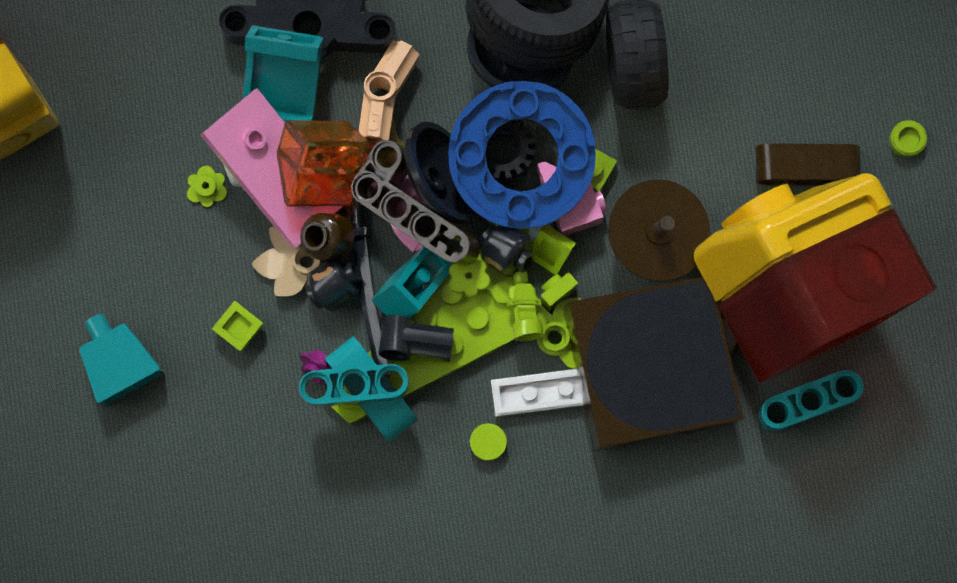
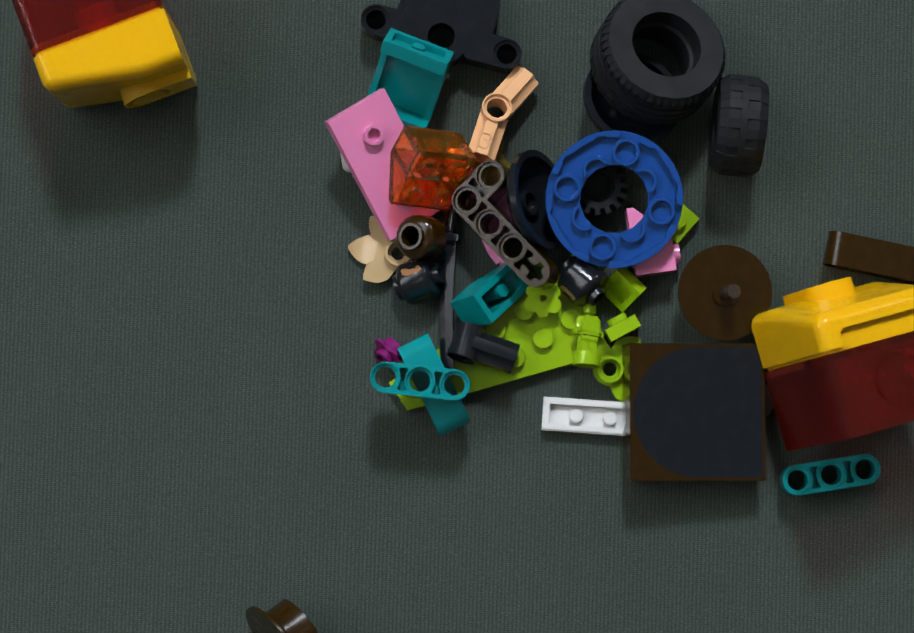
camera: 10 degrees right, 5 degrees up
(116, 360) = (208, 310): teal torso -> none
(215, 191) = (327, 172): lime plant -> none
(238, 326) = (324, 301): lime plate -> none
(488, 442) = (530, 452): lime tile -> none

